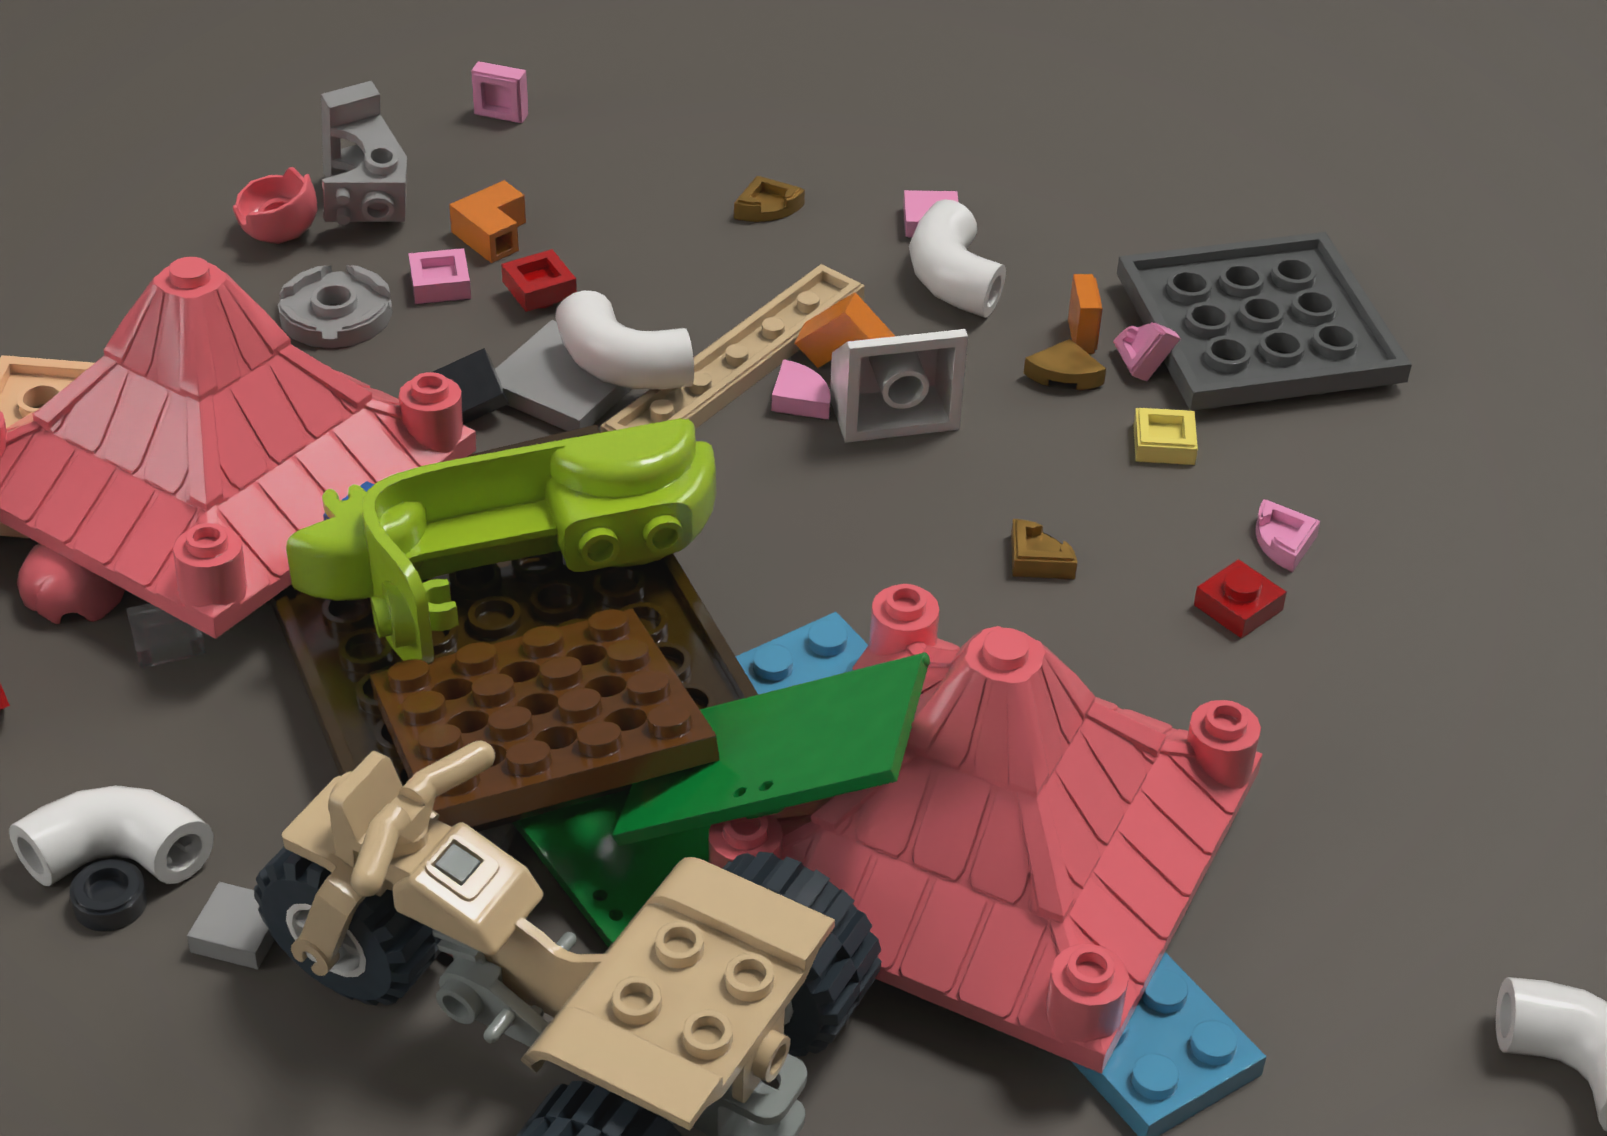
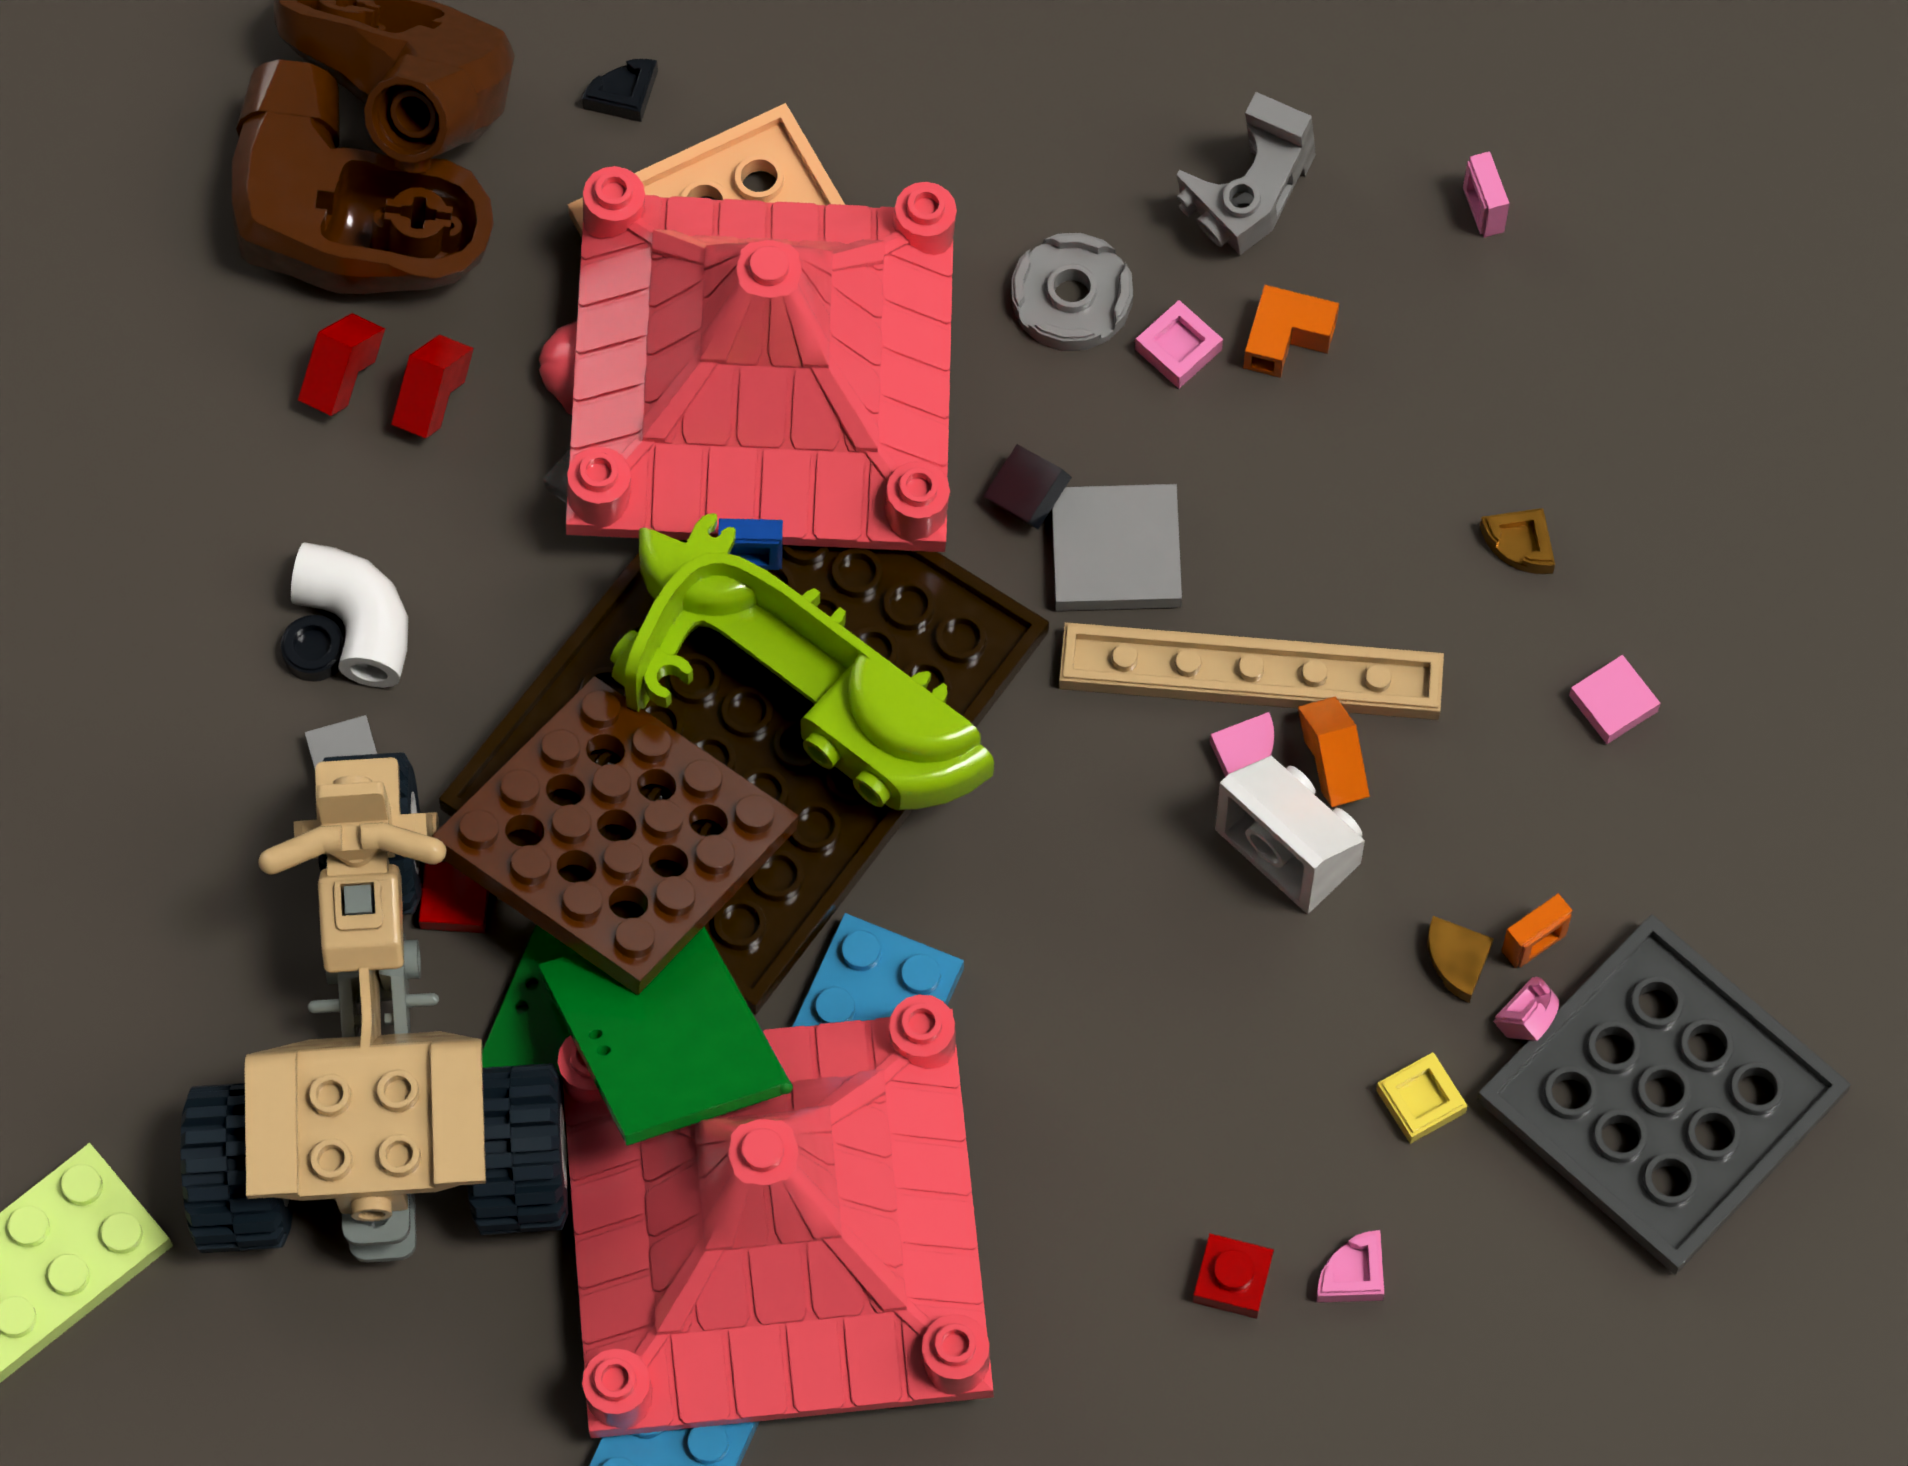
camera: 60 degrees right, 25 degrees up
(277, 207) = (1151, 144): coral hair -> none
(538, 280) = (1225, 433): red plate -> none
(621, 353) = (1137, 577): white cylinder -> none
(947, 267) = (1521, 758): white cylinder -> none
(1039, 553) = (1174, 1076): pearl gold tile -> none

